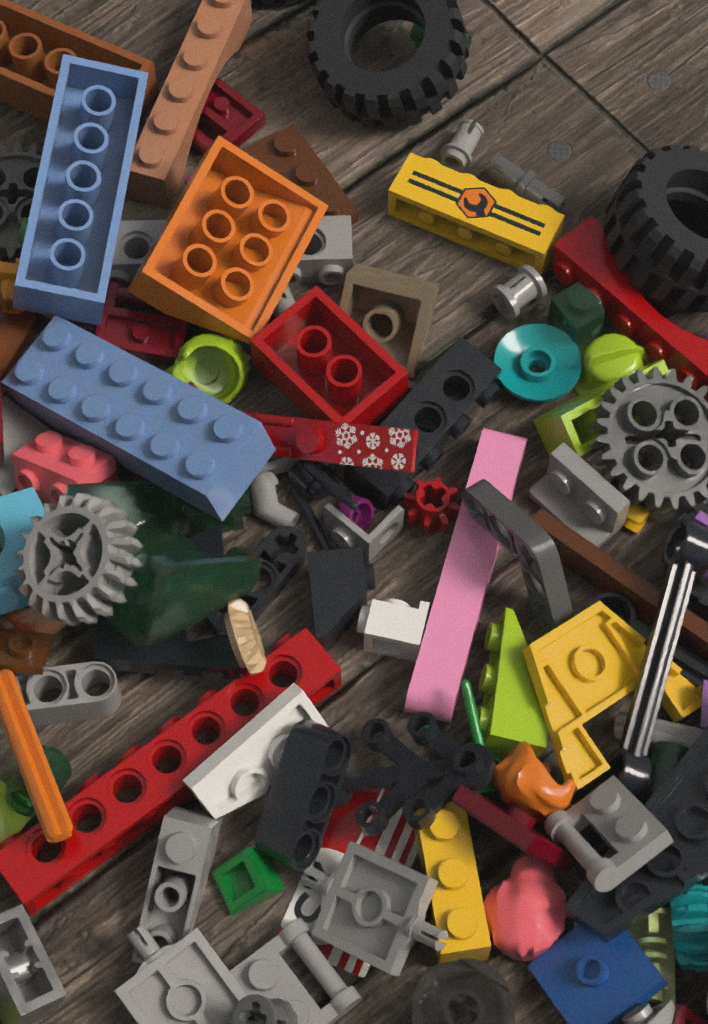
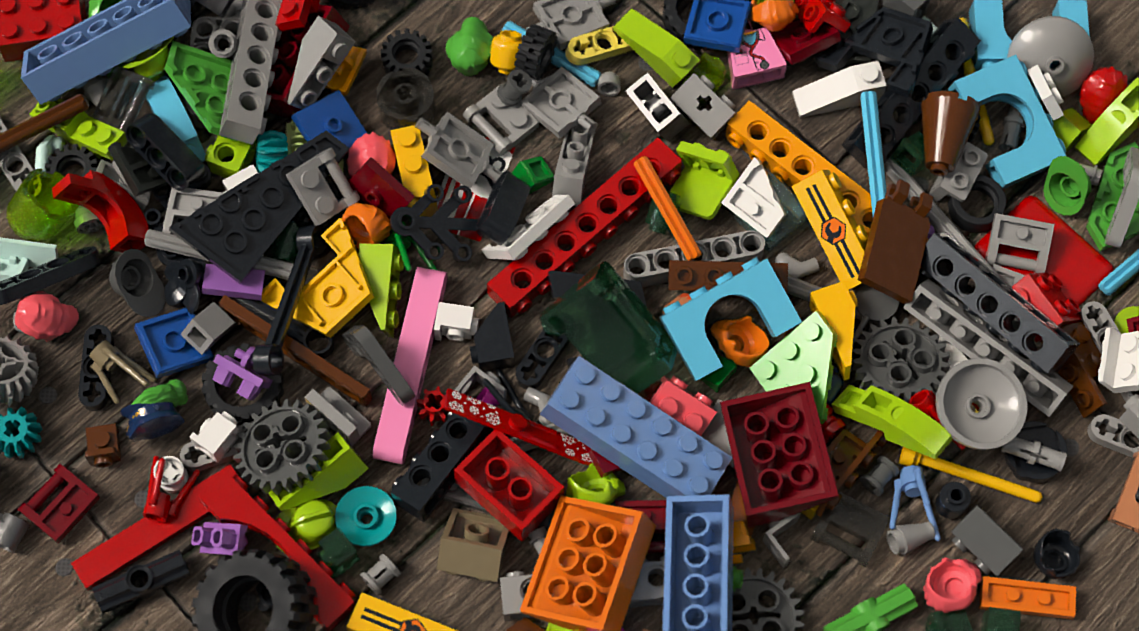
camera: 175 degrees right, 5 degrees up
(61, 562) = (634, 290): light grey gear -> none
(244, 637) = (546, 282): tan gear -> none

